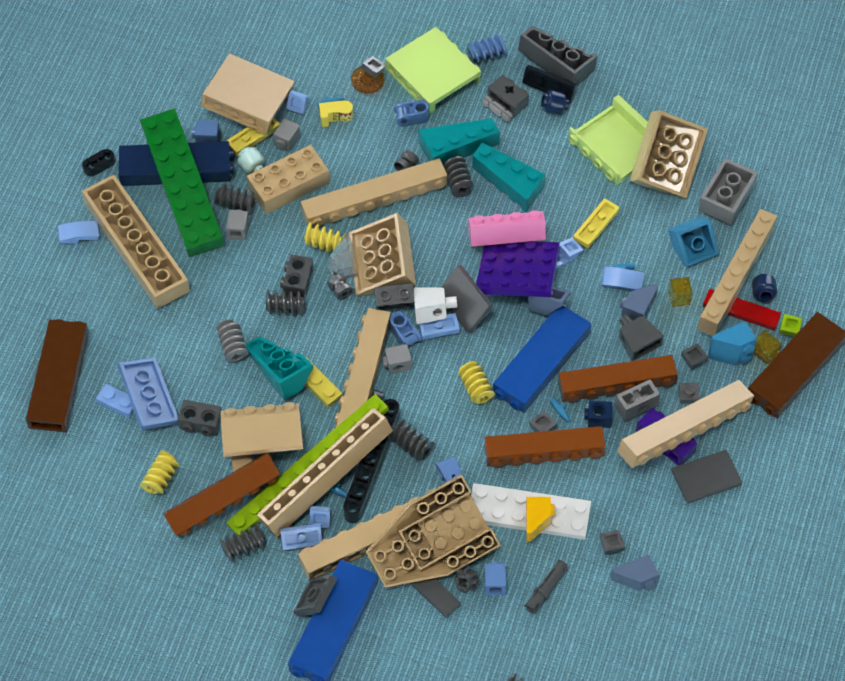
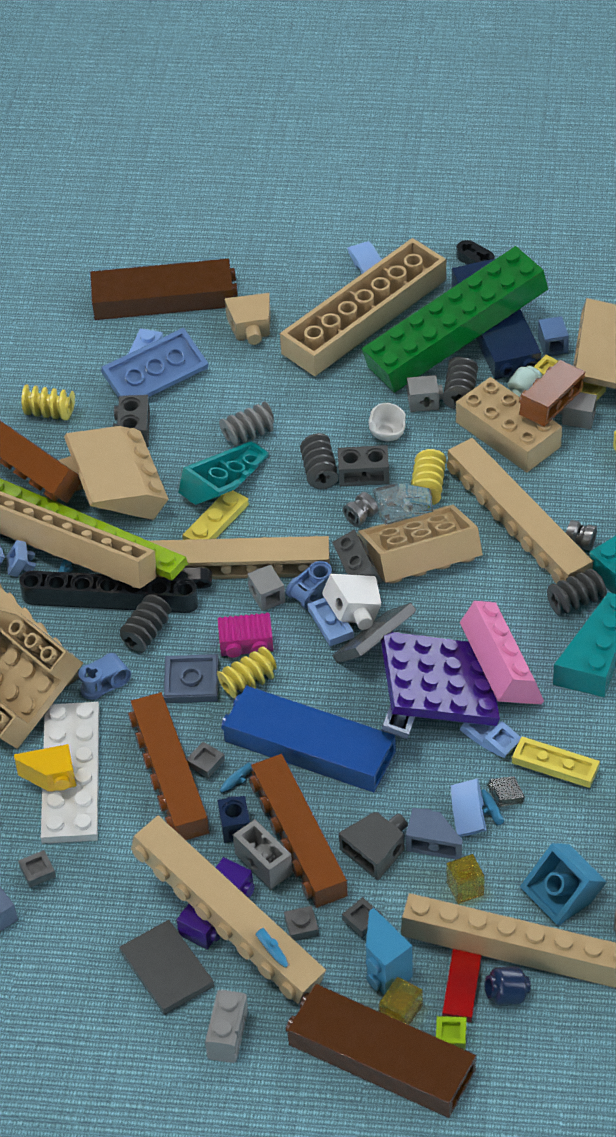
camera: 80 degrees right, 10 degrees down
(114, 320) = (249, 317): none -> tan torso
(261, 253) = (387, 422): none -> white hair
(284, 139) = (551, 392): none -> brick
(438, 380) = (244, 634): none -> dark pink brick
(464, 423) = (191, 678): none -> sand blue tile
(612, 256) = (506, 791): none -> clear smoke tile
(725, 400) = (272, 947): none -> dark azure helmet
(765, 445) = (226, 1026): none -> light grey brick

